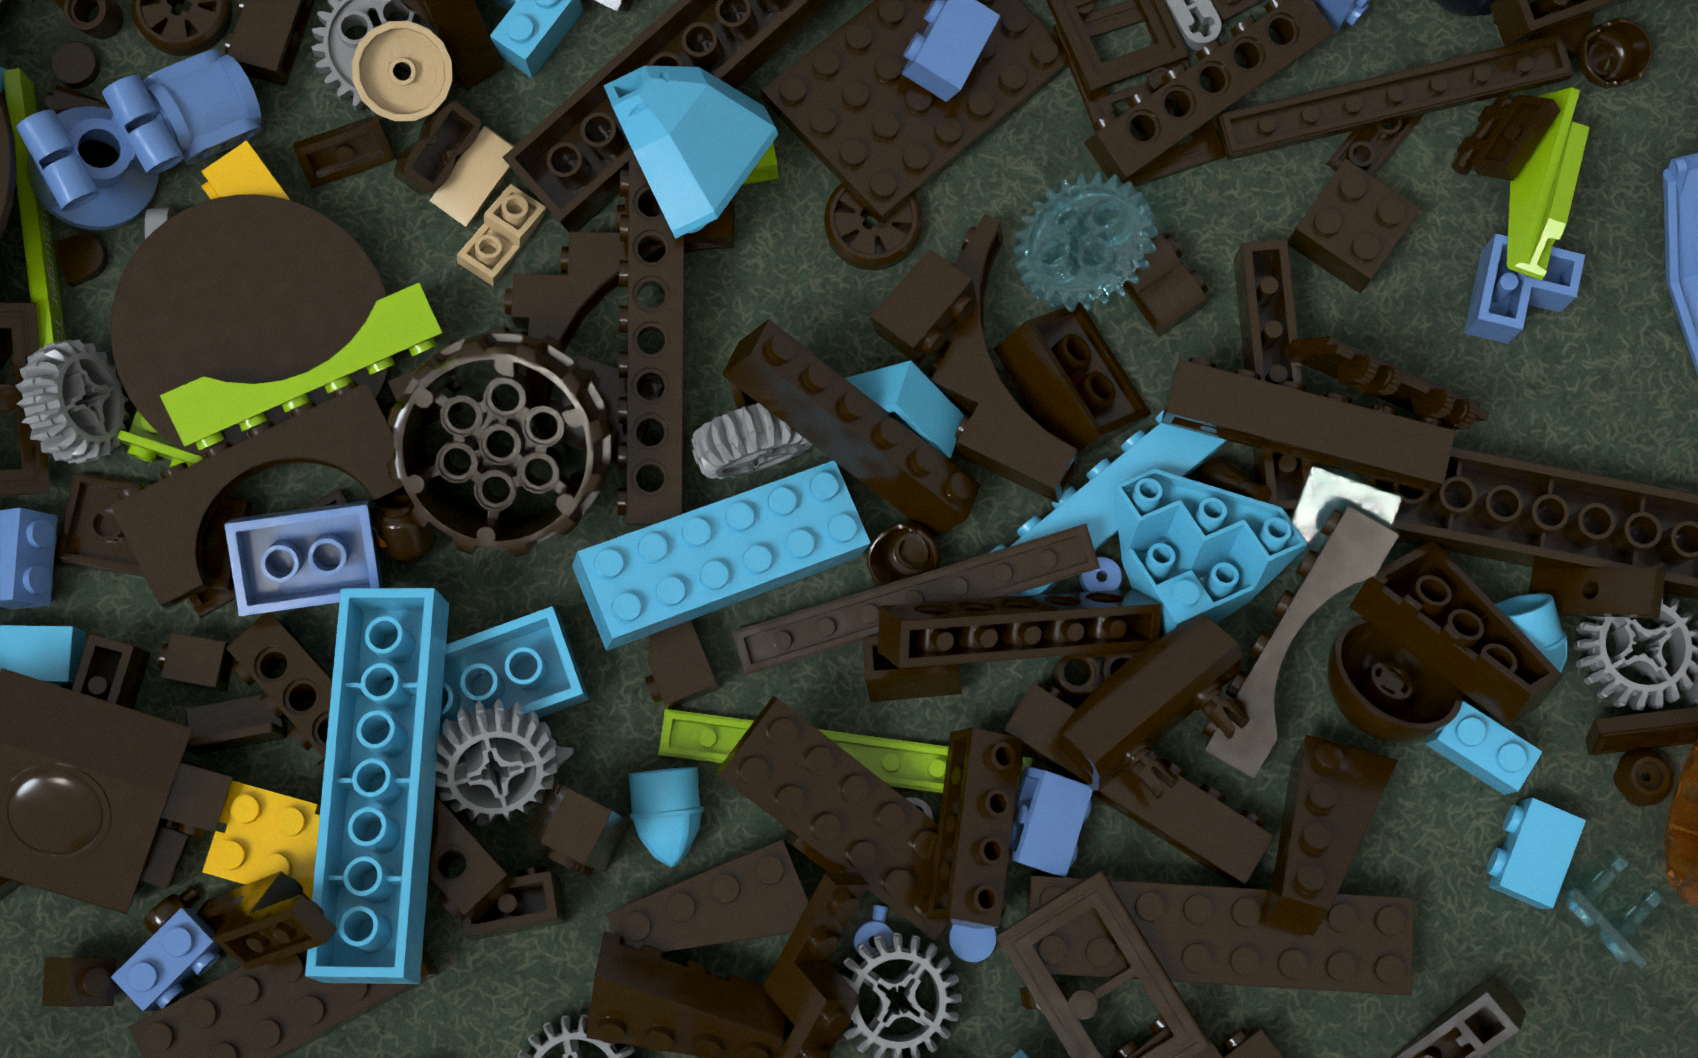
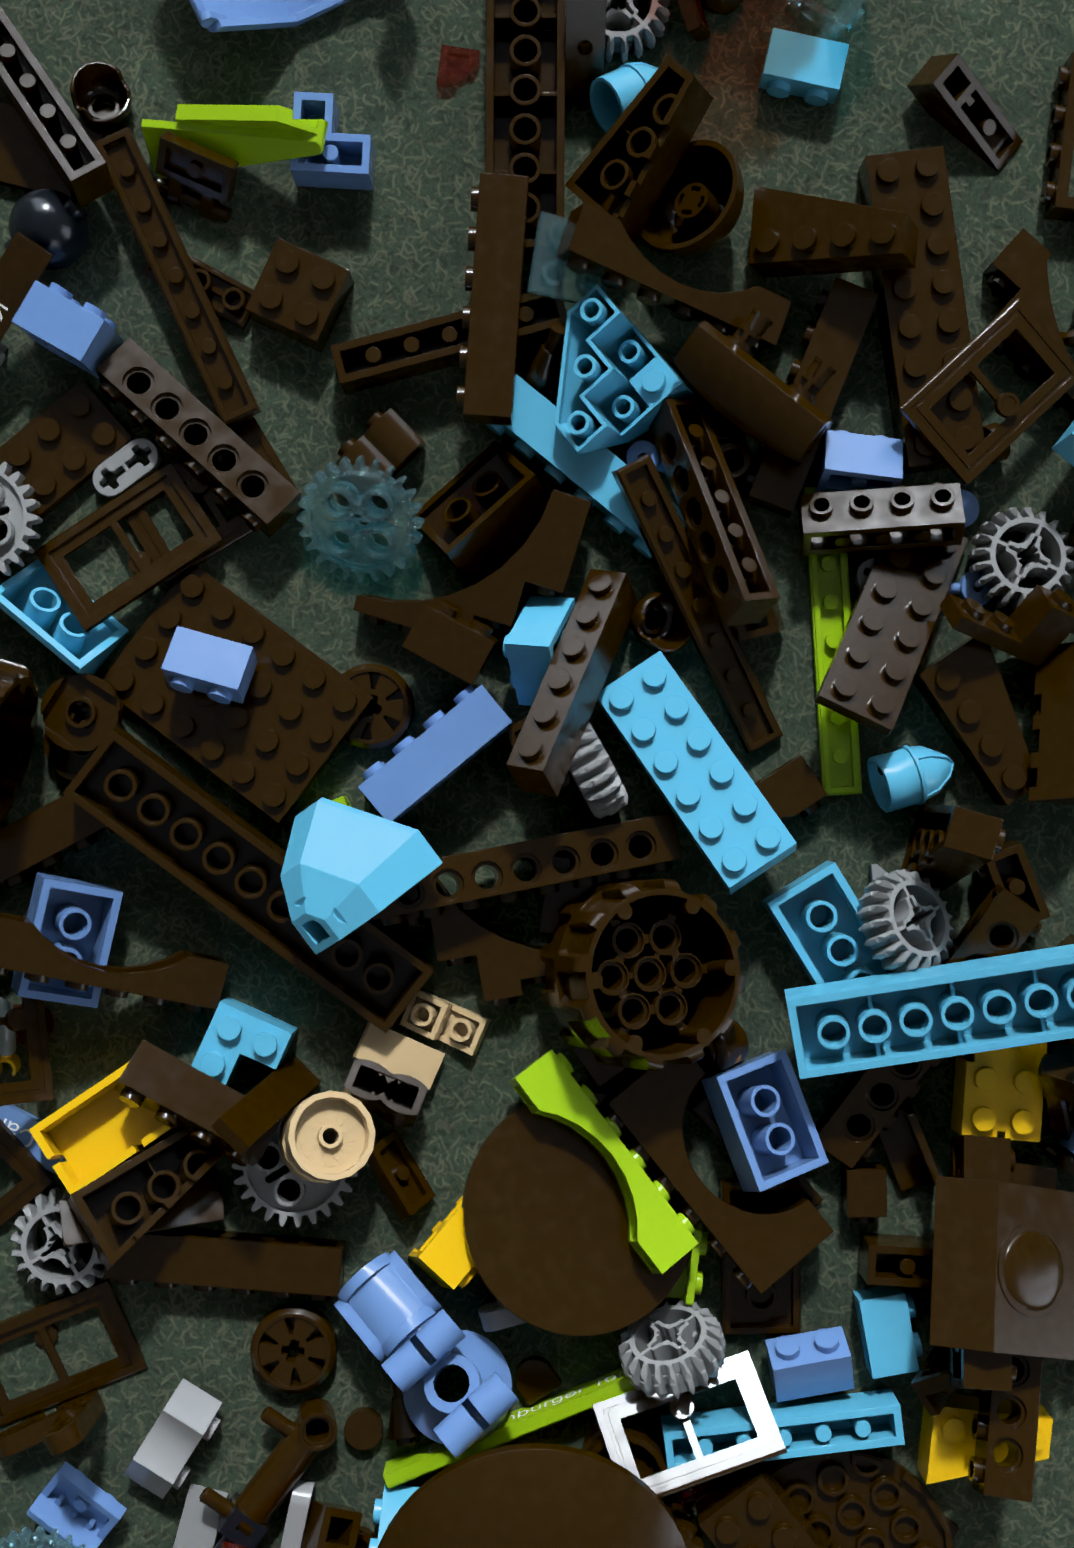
camera: 95 degrees left, 10 degrees up
(802, 271) = (436, 754): none -> medium blue brick
(1386, 381) = (447, 233): dark brown hinge -> none
(1486, 750) = (730, 110): medium azure brick -> none
(1596, 451) = (456, 65): none -> clear red tile

